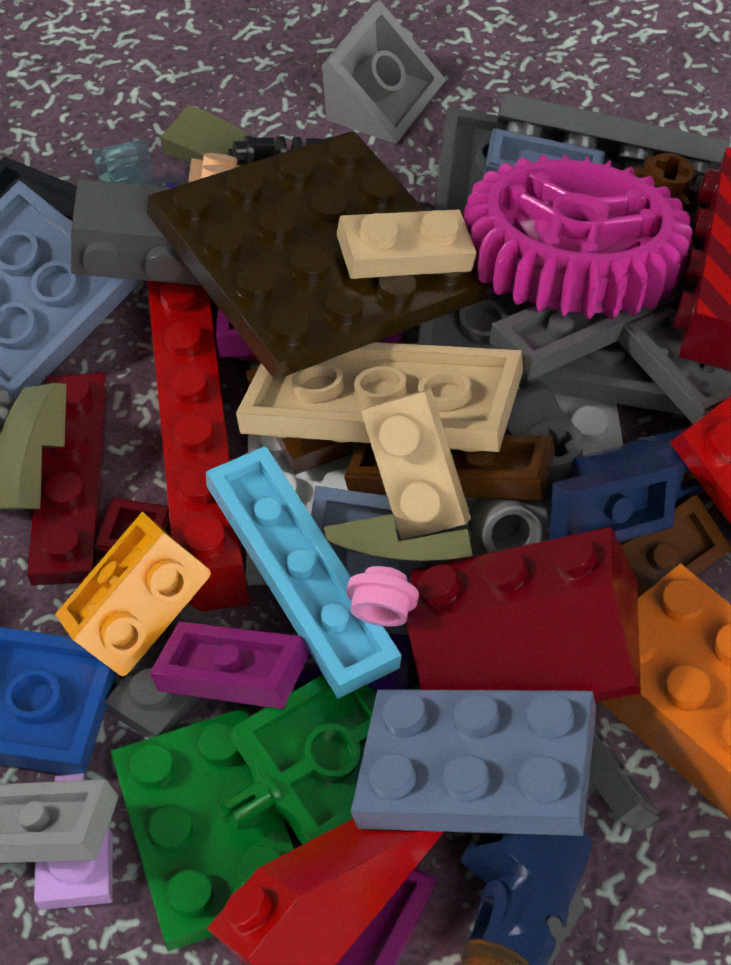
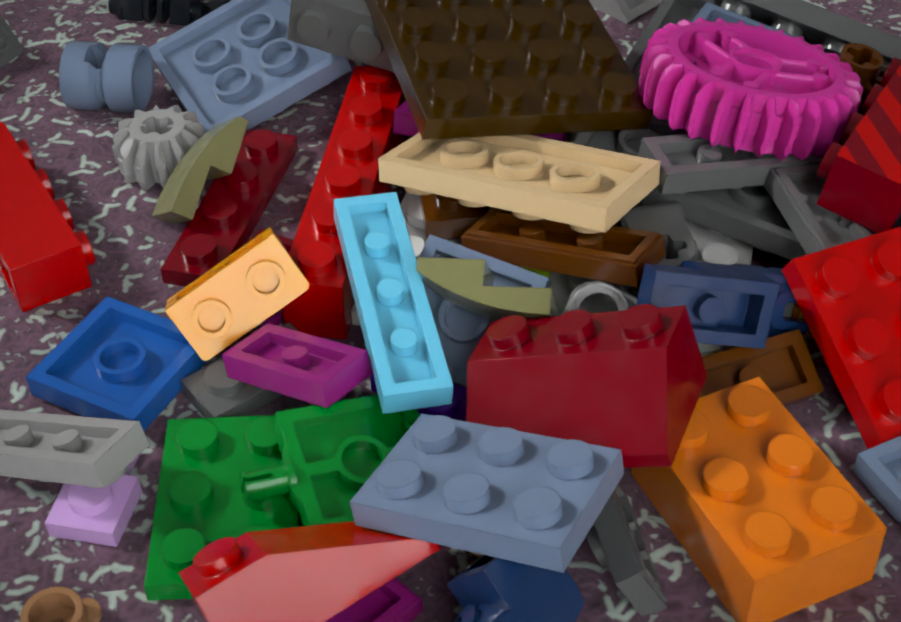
camera: 15 degrees right, 10 degrees down
(381, 596) = (448, 326): bright pink plate -> none
(405, 243) = (582, 56): tan plate -> none
(416, 465) = (523, 223): tan plate -> none

